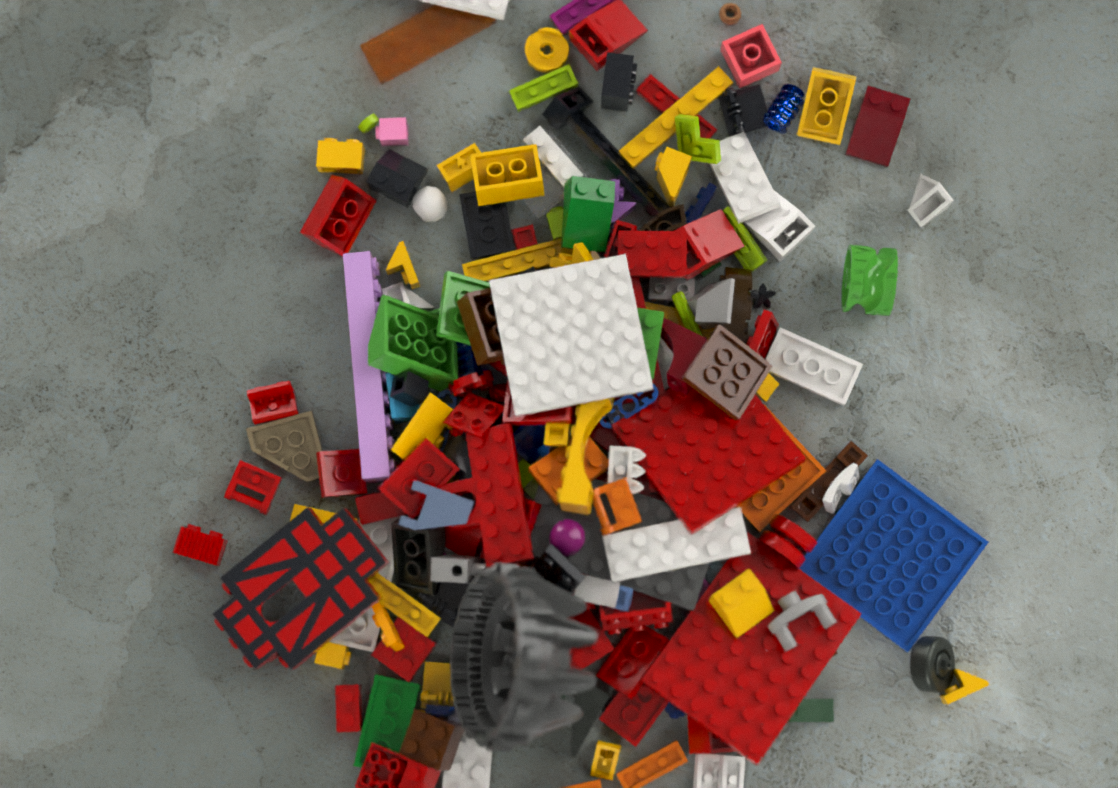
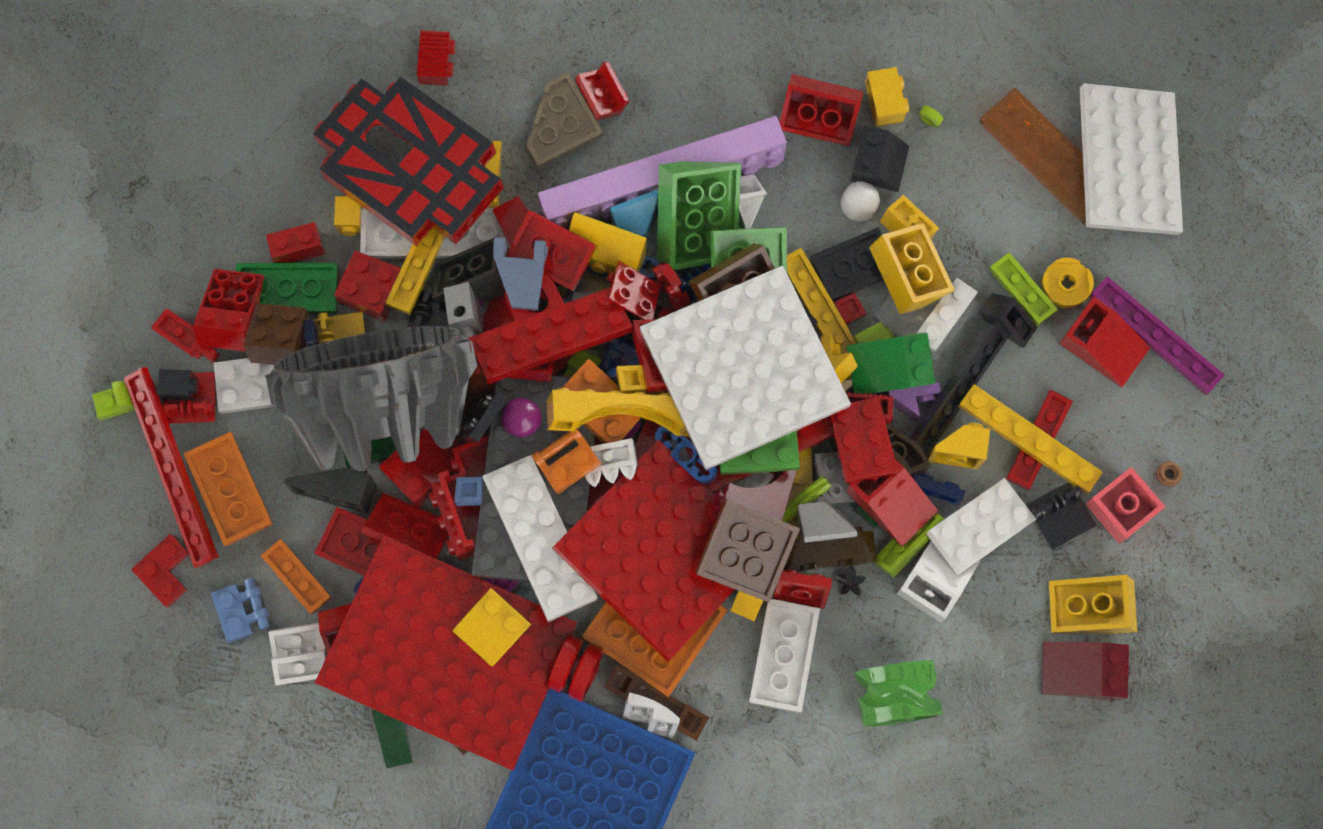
camera: 70 degrees right, 5 degrees down
(256, 480) = (516, 96): red plate -> none
(340, 473) = (540, 173): red plate -> none
(382, 619) = (391, 253): light orange plate -> none
(392, 131) = (928, 143): bright pink brick -> none
(402, 261) = (788, 185): yellow slope -> none
(409, 388) = (646, 218): black brick -> none
(598, 591) = (471, 465): white sticker -> none
(605, 760) = (296, 524): yellow slope -> none
(617, 87) = (1051, 364): black brick -> none
(690, 143) = (1003, 460): lime plate -> none
(784, 108) = (1074, 554): clear blue piece -> none
(794, 608) = (499, 689): light grey connector -> none
(928, 200) = (1012, 748): white slope -> none

